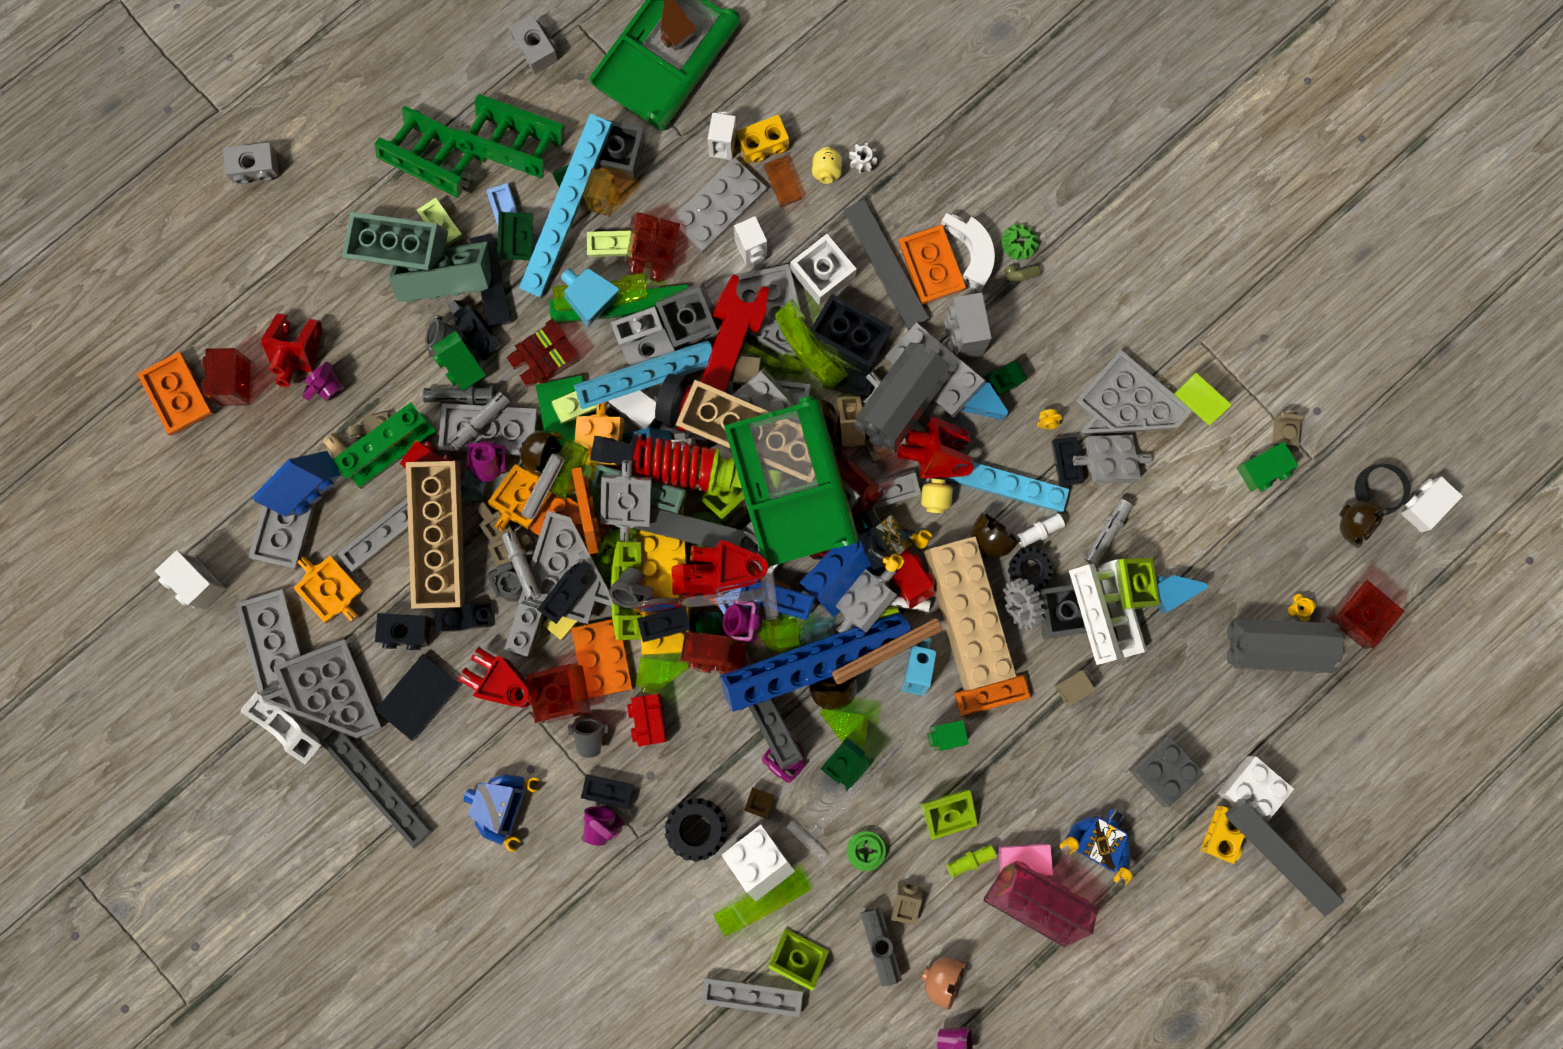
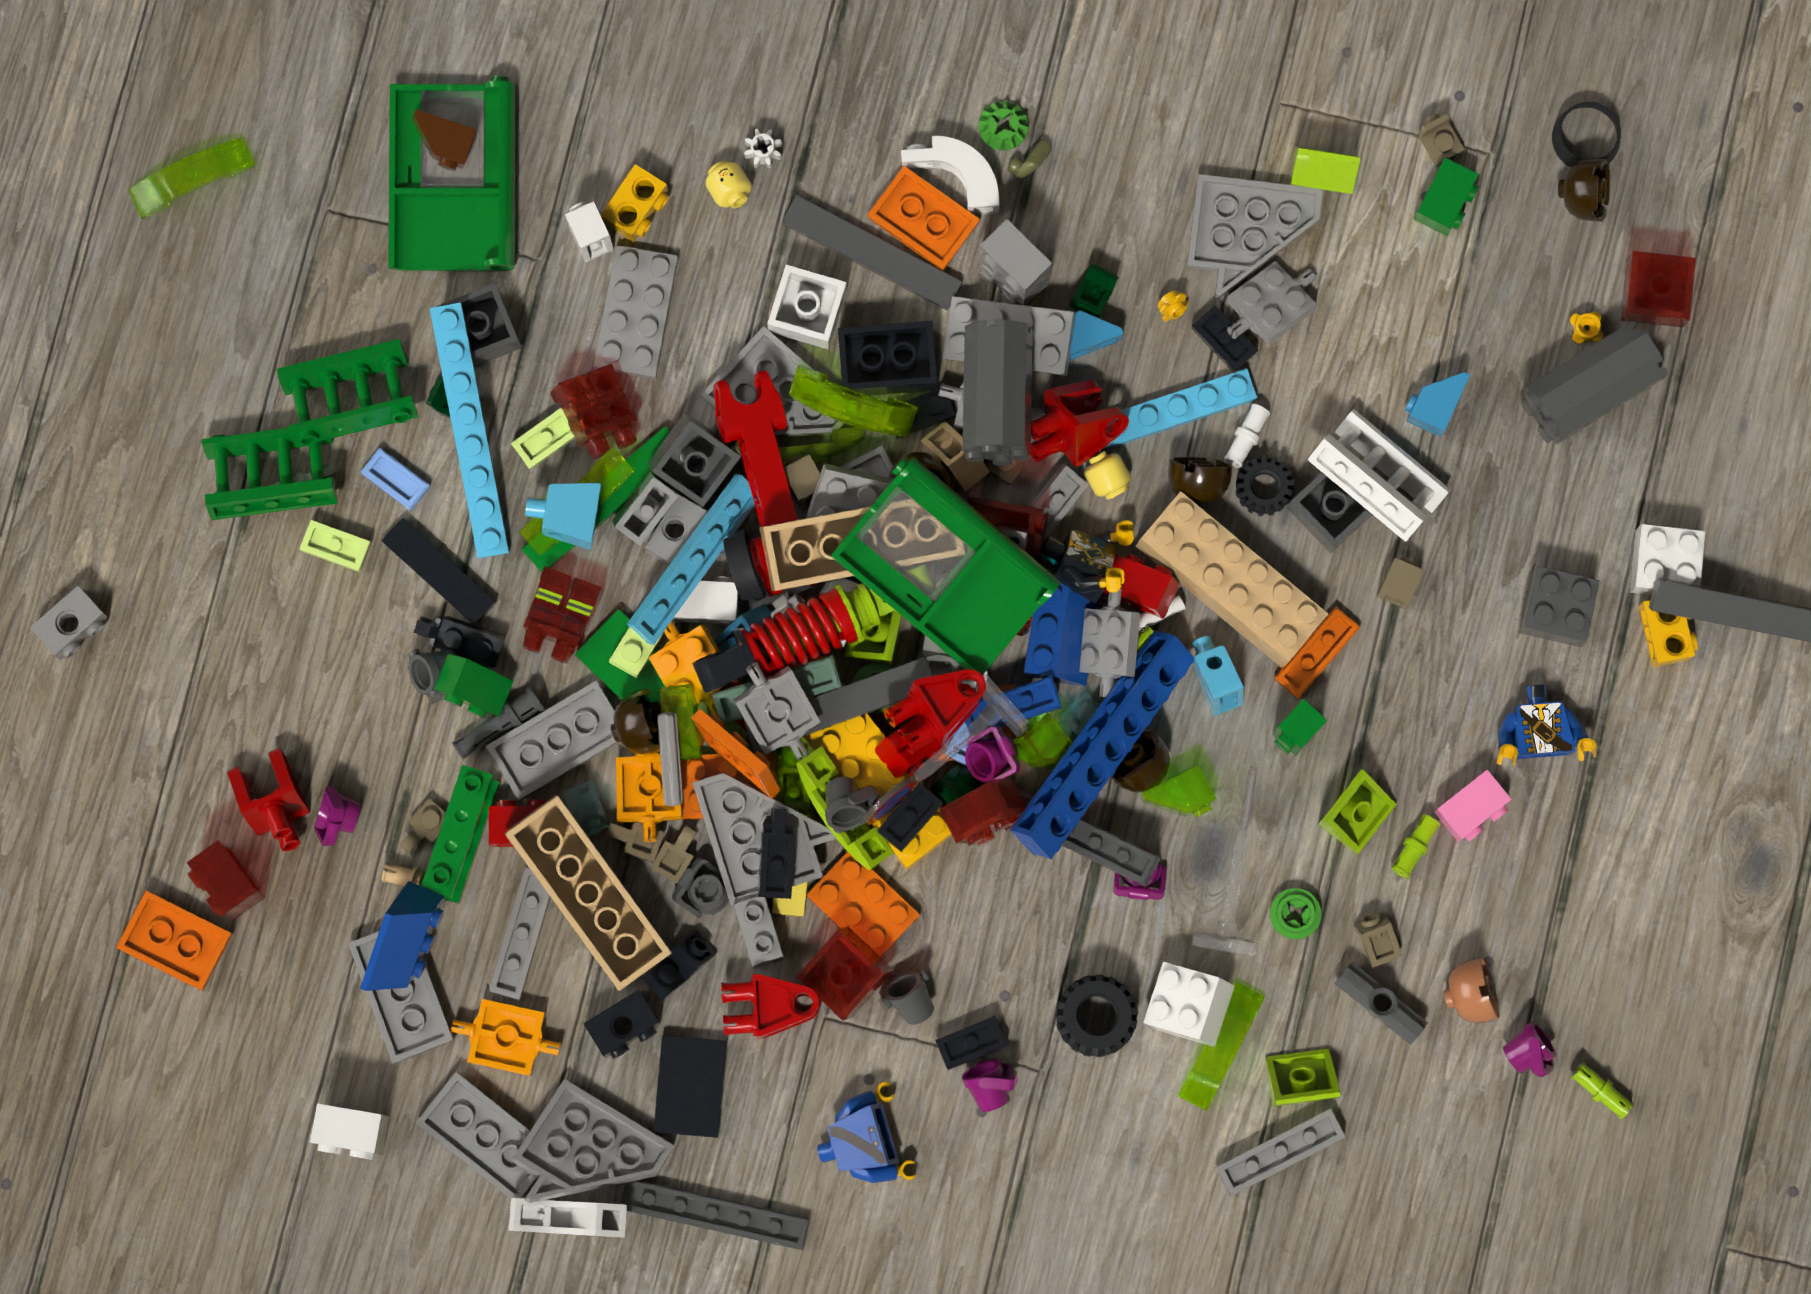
camera: 30 degrees left, 0 degrees up
(394, 241) = (305, 602): sand green slope -> none
(457, 271) = (380, 599): sand green slope -> none
(473, 426) = (544, 736): light grey pin -> none
(484, 461) = (583, 777): magenta piece -> none
(515, 236) = (433, 502): dark green plate -> none
(518, 558) = (696, 856): light grey pin -> none
(539, 55) = (308, 281): light grey brick -> none
(601, 192) = (498, 386): clear yellow brick -> none
(648, 720) = (962, 936): red brick -> none
(657, 674) = (937, 878): clear neon green slope -> none
(750, 241) = (705, 330): white brick -> none
(759, 802) = (1144, 941): dark brown plate -> none
(782, 181) = (689, 236): clear orange tile -> none
(847, 764) = (1210, 833): dark green plate -> none
(887, 651) = (1171, 681): medium nougat axle -> none
(1023, 604) = (1283, 529): light grey gear -> none
(1042, 904) = (1520, 838): clear pink slope -> none
(1112, 525) = (1322, 387): light grey pin -> none
(1137, 583) = (1390, 422): lime slope -> none
(1430, 504) = (1649, 118): white brick -> none

